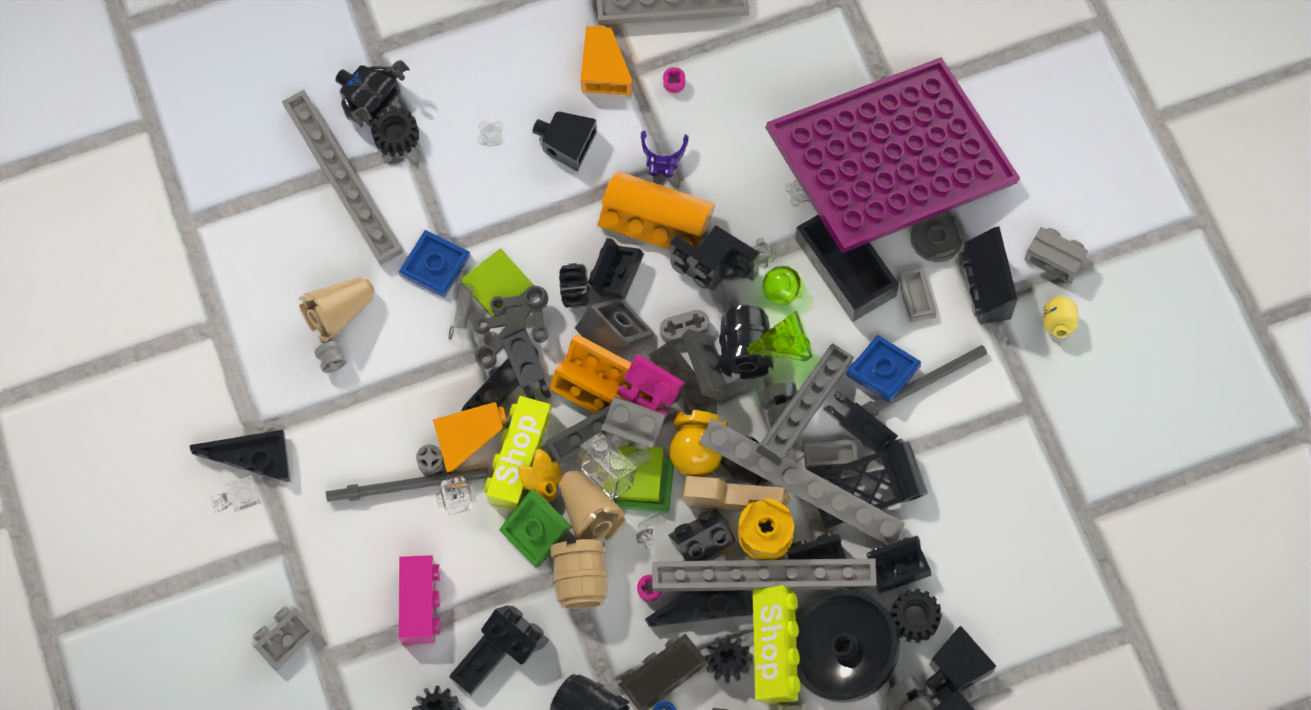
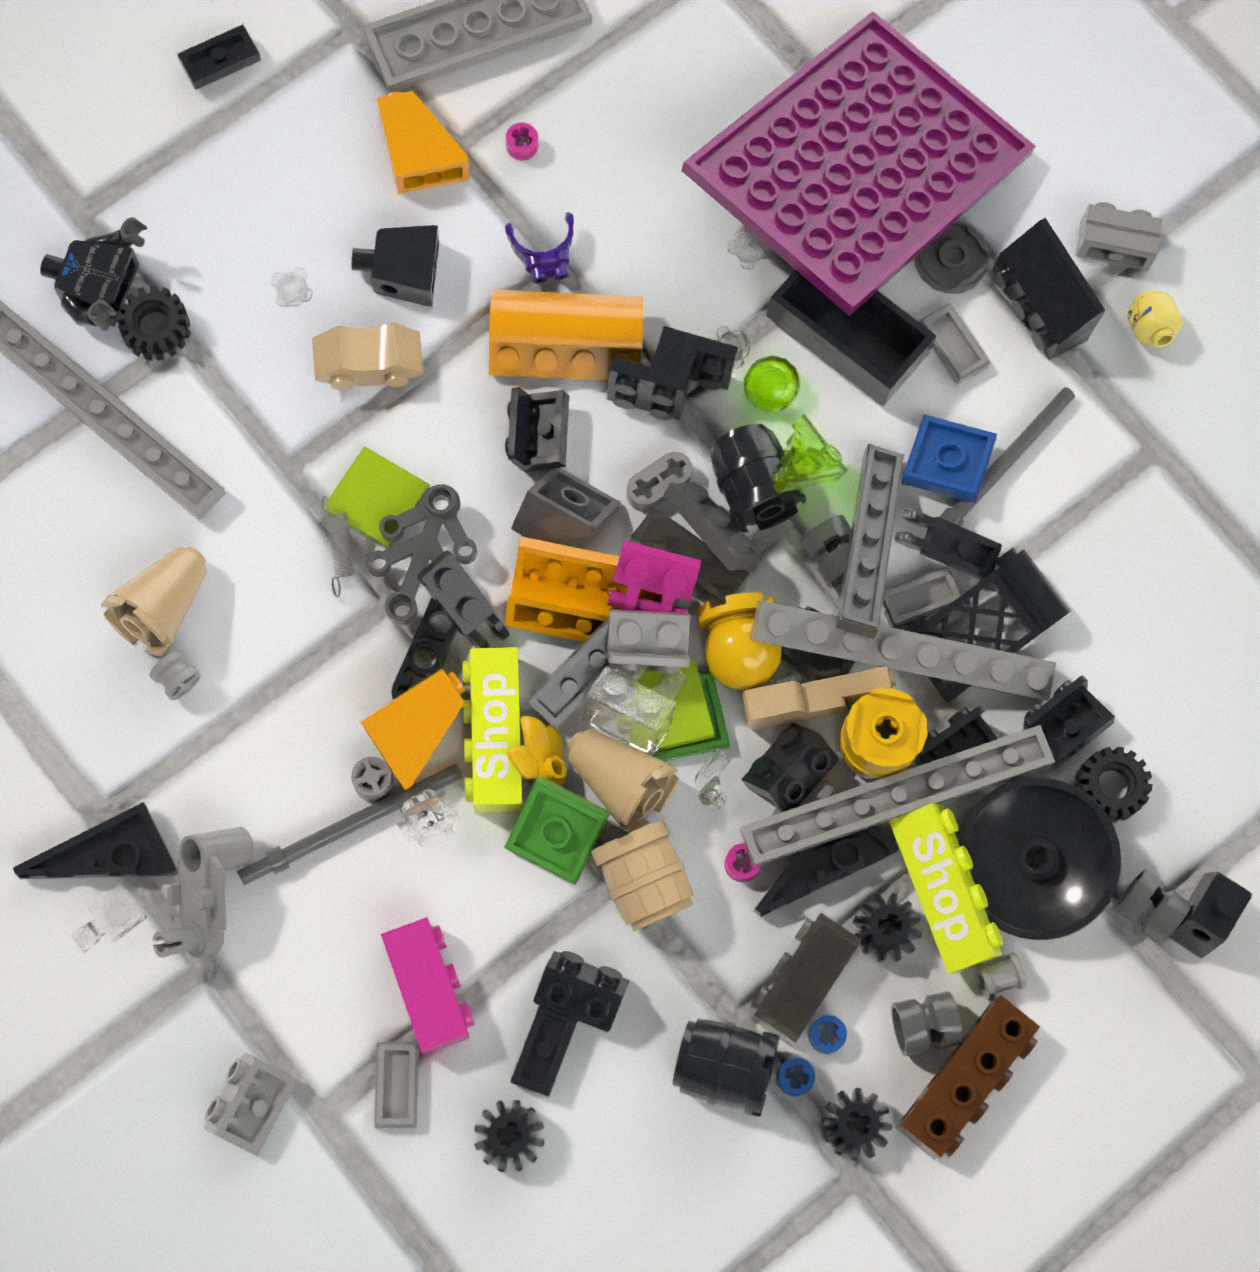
camera: 30 degrees left, 5 degrees up
(298, 494) = (202, 891): none -> light grey piece
(378, 656) = (396, 1085): none -> light grey tile
(434, 263) = (277, 495): blue tile -> none
(522, 191) = (367, 356): none -> tan brick
(574, 285) = (490, 468): black gear -> none
(959, 664) = (1194, 831): black torso -> none

